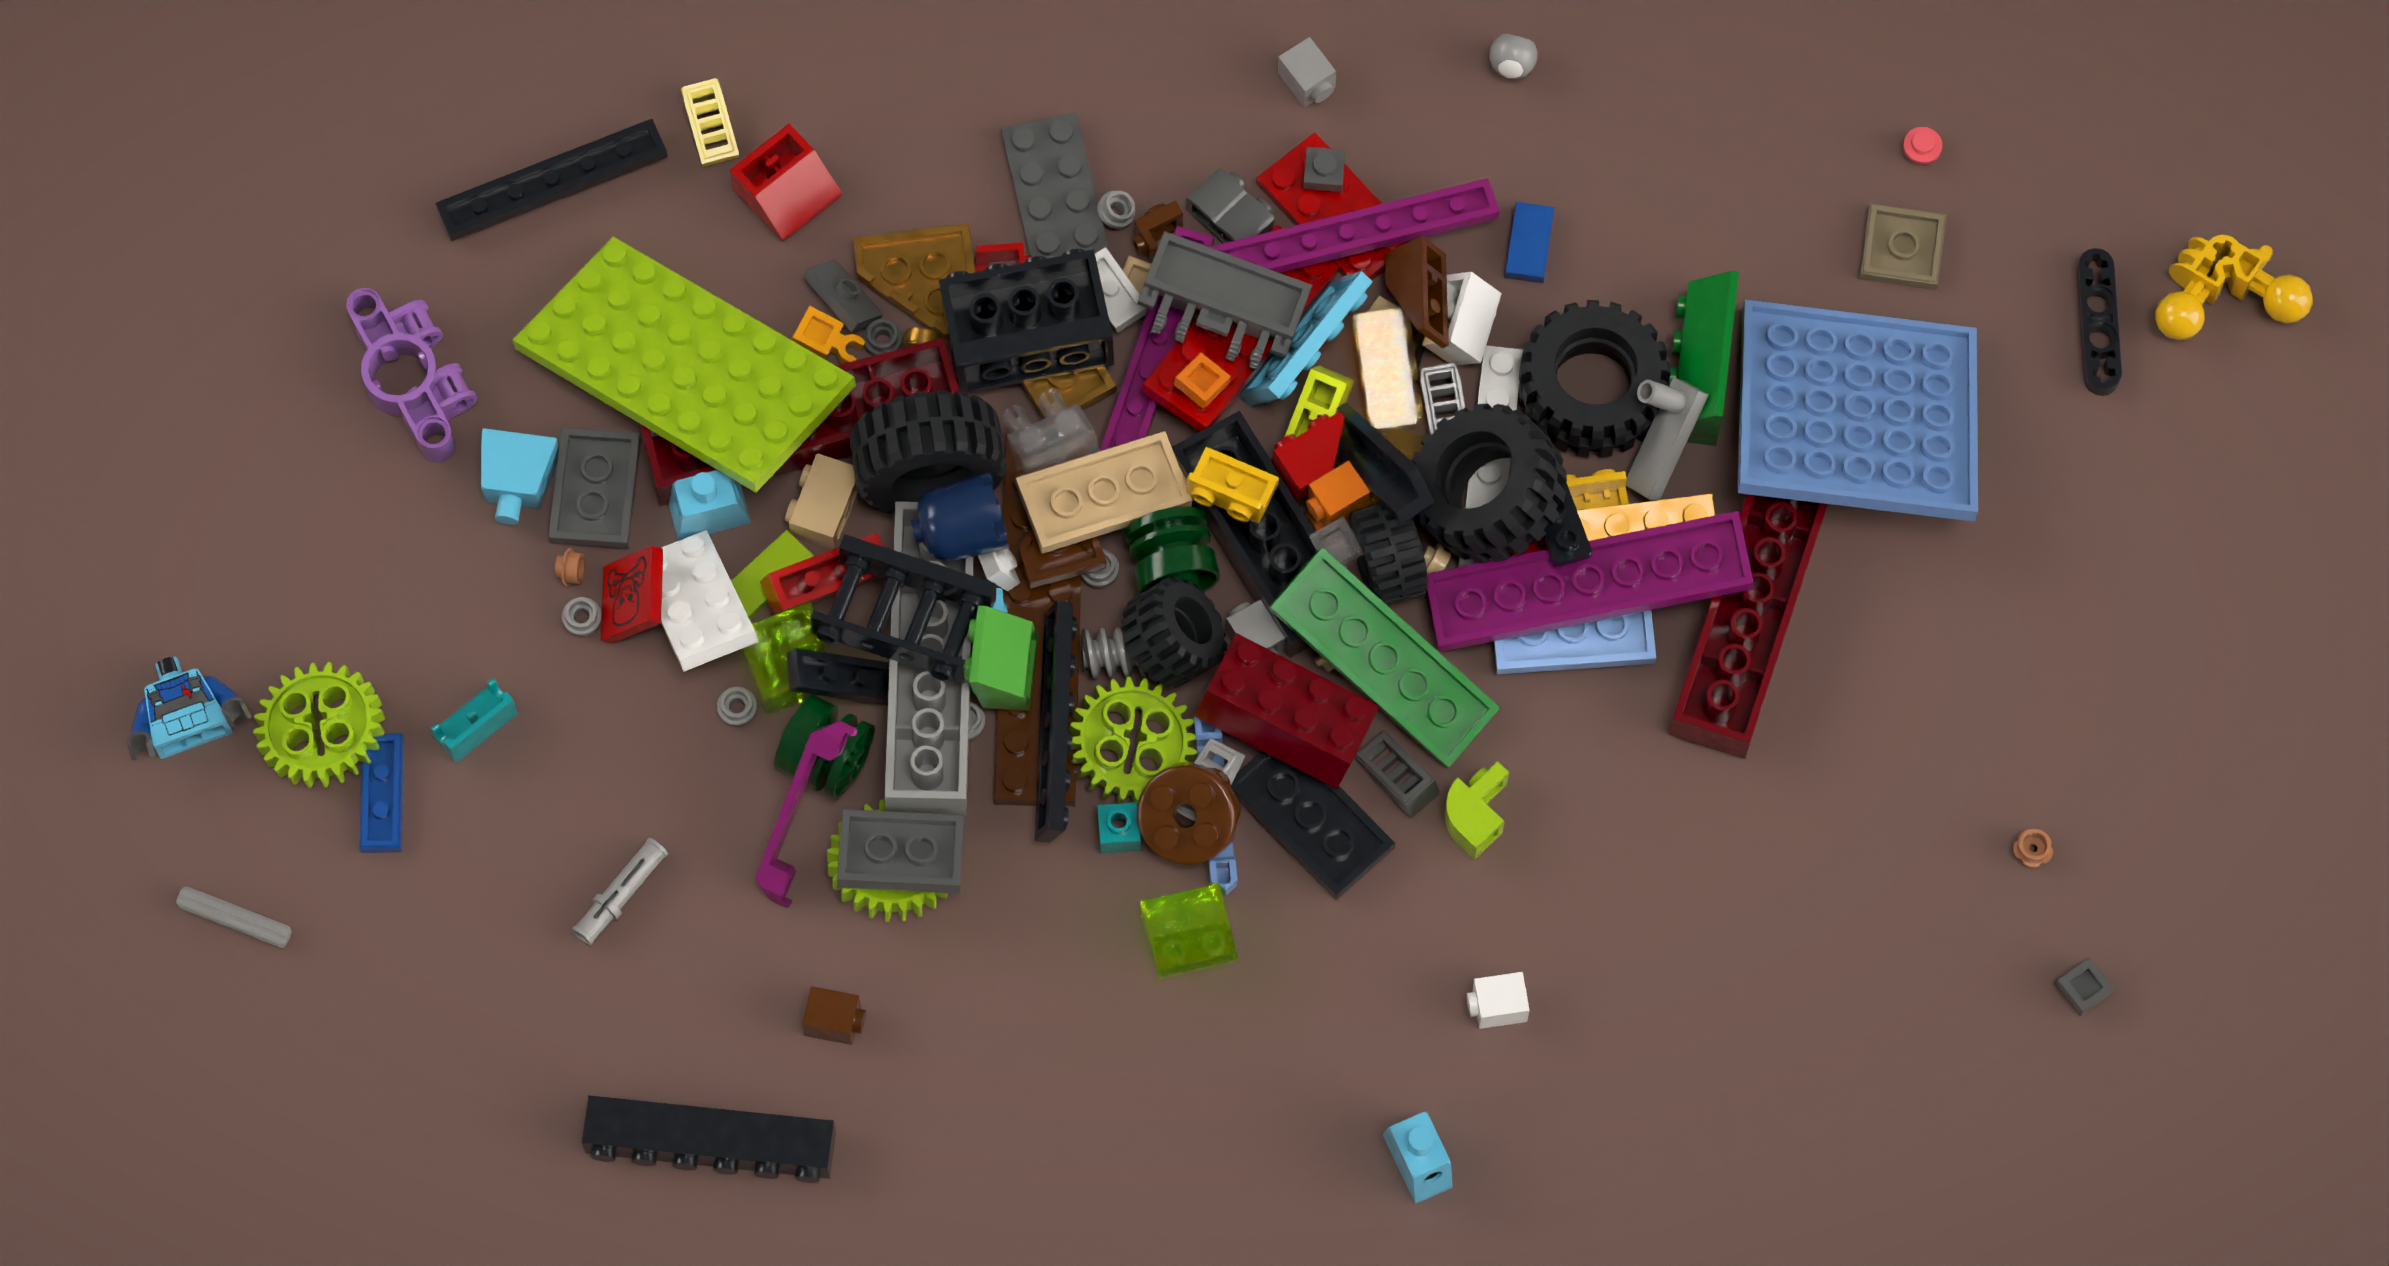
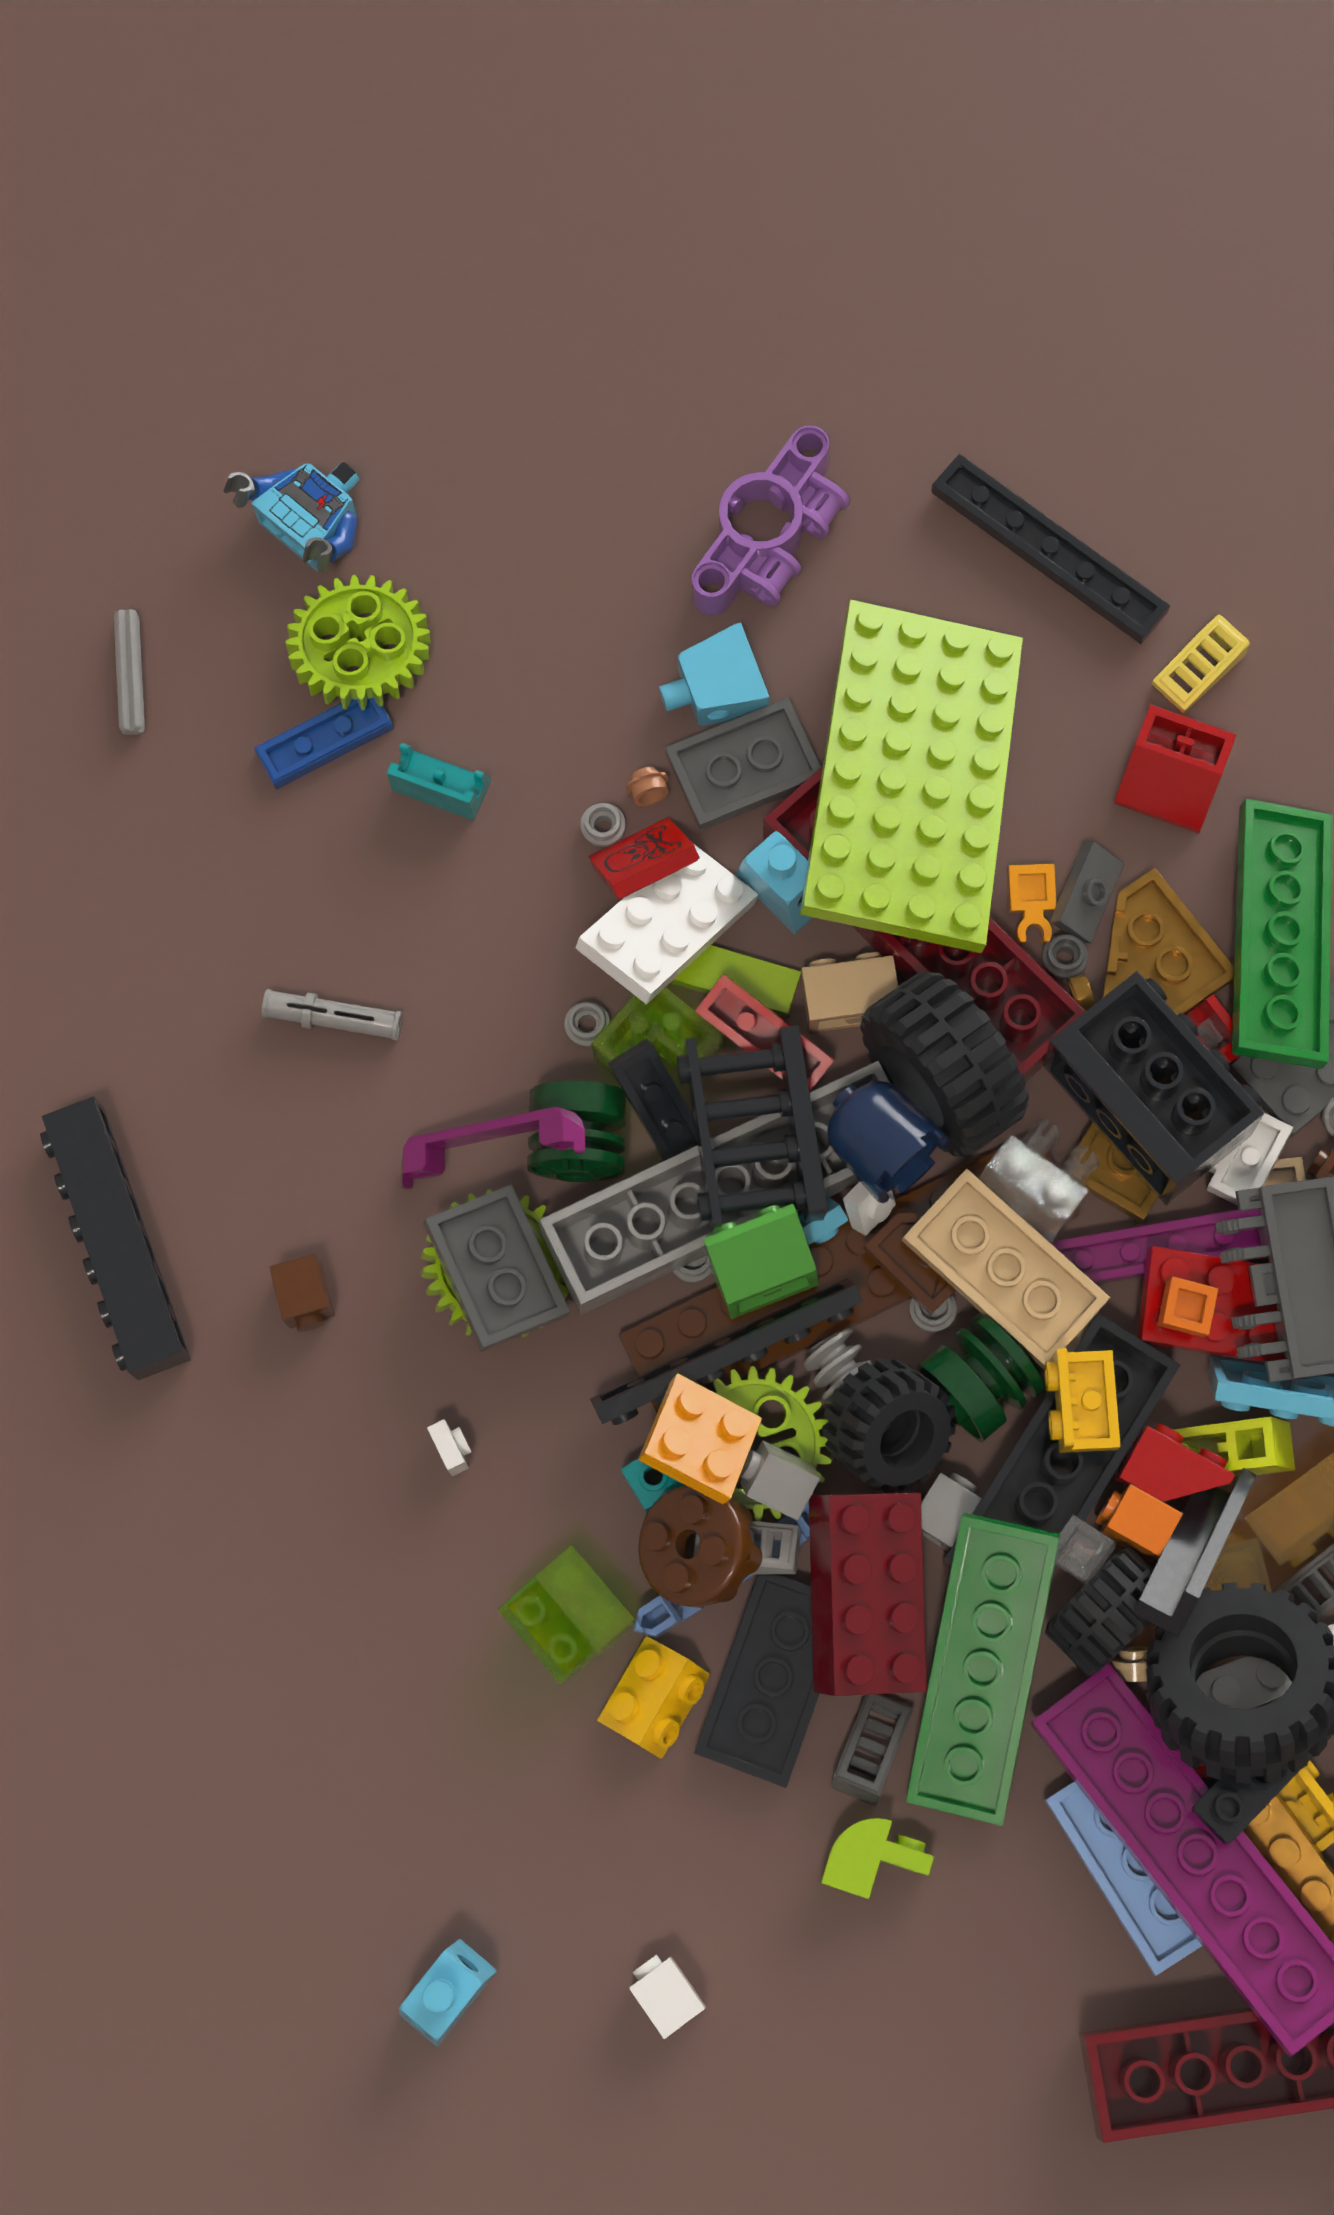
camera: 70 degrees right, 5 degrees up
(957, 175) = (1283, 935): none -> green plate
(1013, 962) = (451, 1446): none -> white plate
(1114, 763) = (700, 1439): none -> light orange plate
(1172, 729) = (778, 1479): none -> light grey brick
(1279, 906) = (654, 1697): none -> yellow bracket

